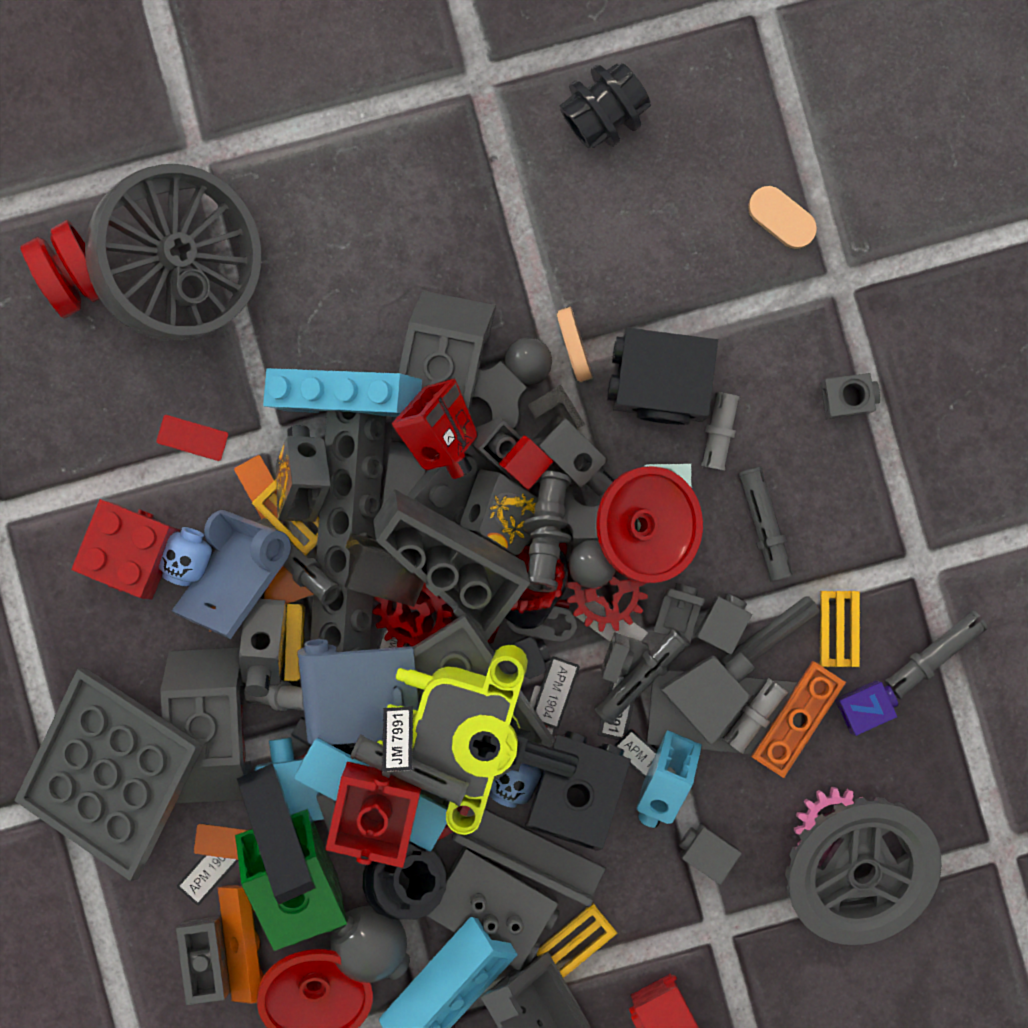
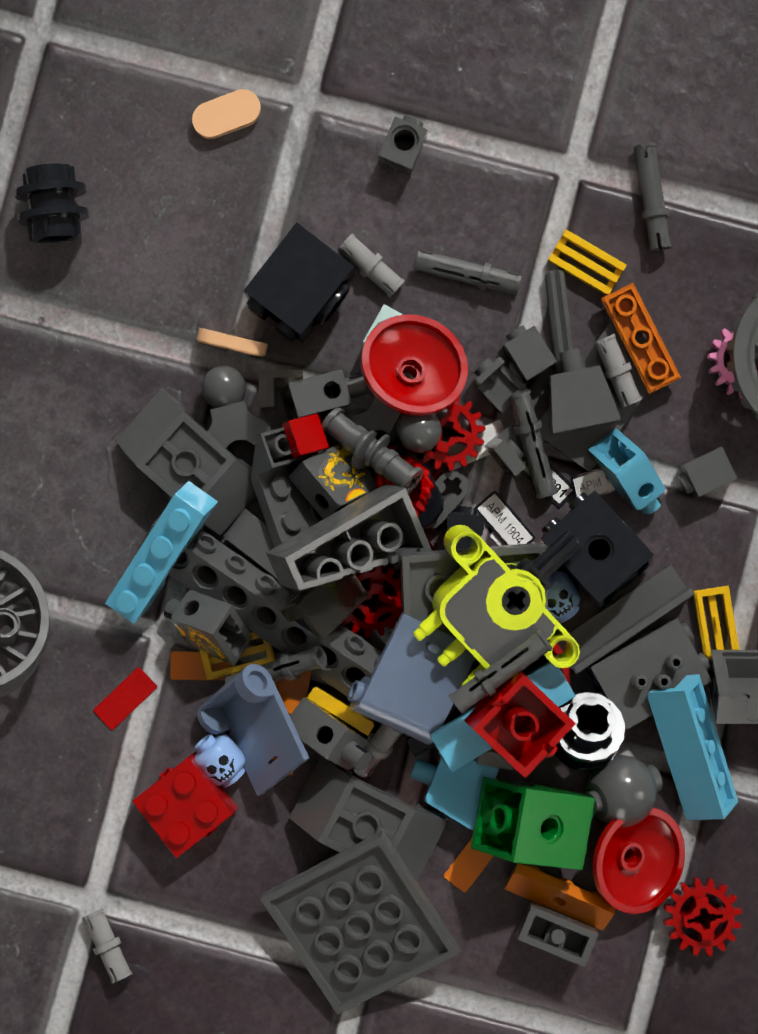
camera: 60 degrees left, 0 degrees up
(205, 877) = (489, 895): white sticker -> none
(276, 834) = (489, 811): black tile -> none
(397, 739) = (469, 666): sticker -> none
(438, 428) = (236, 490): red torso -> none
(867, 707) = (663, 277): dark purple brick -> none

